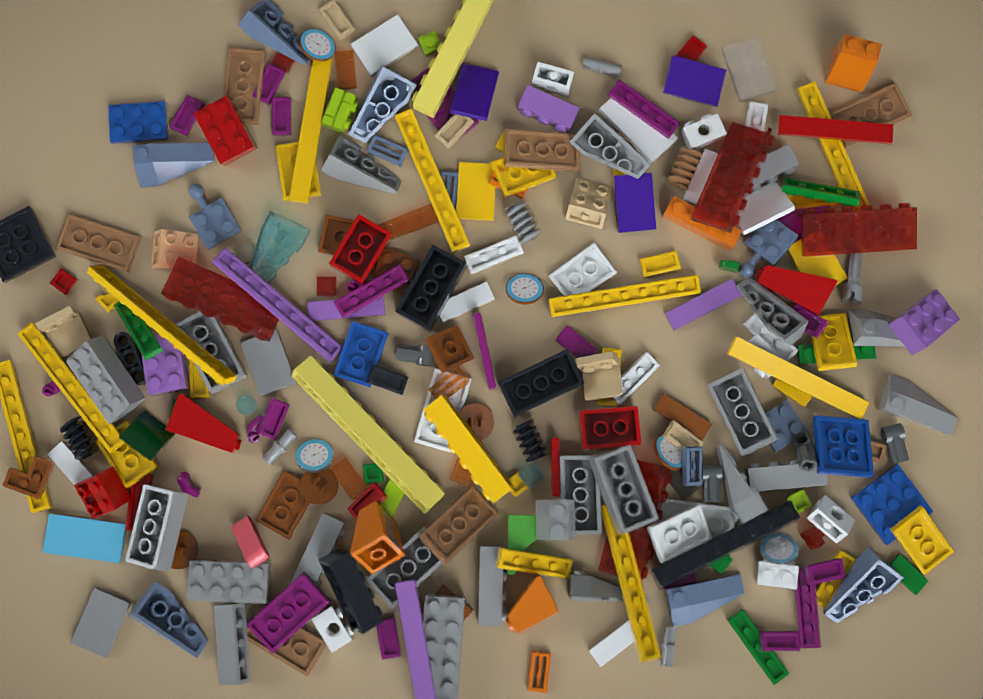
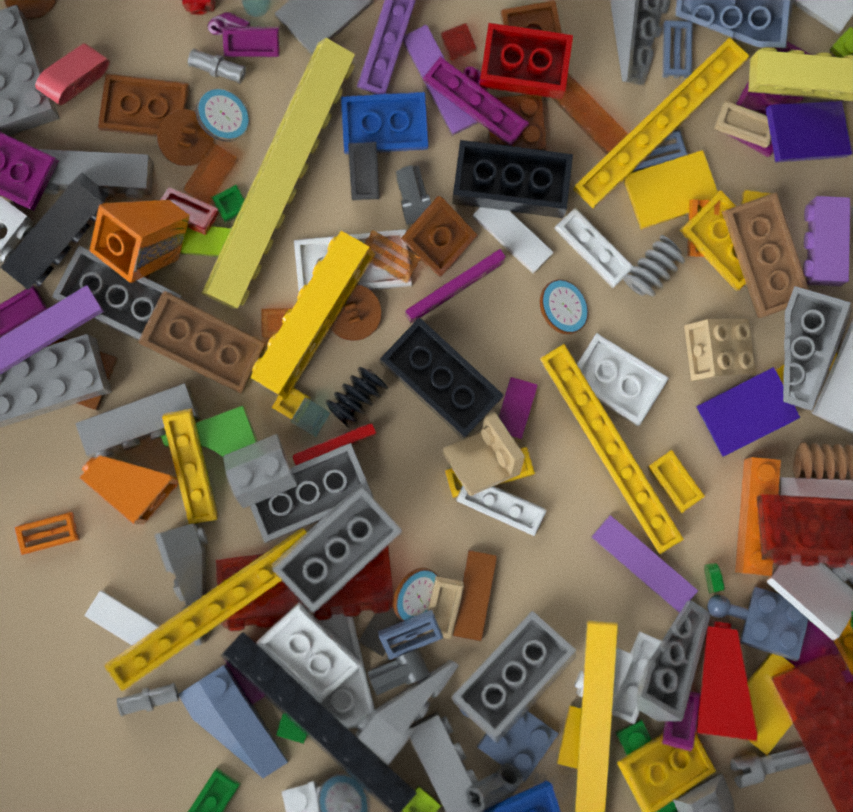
camera: 65 degrees right, 0 degrees up
(609, 427) = (417, 498): red brick -> none

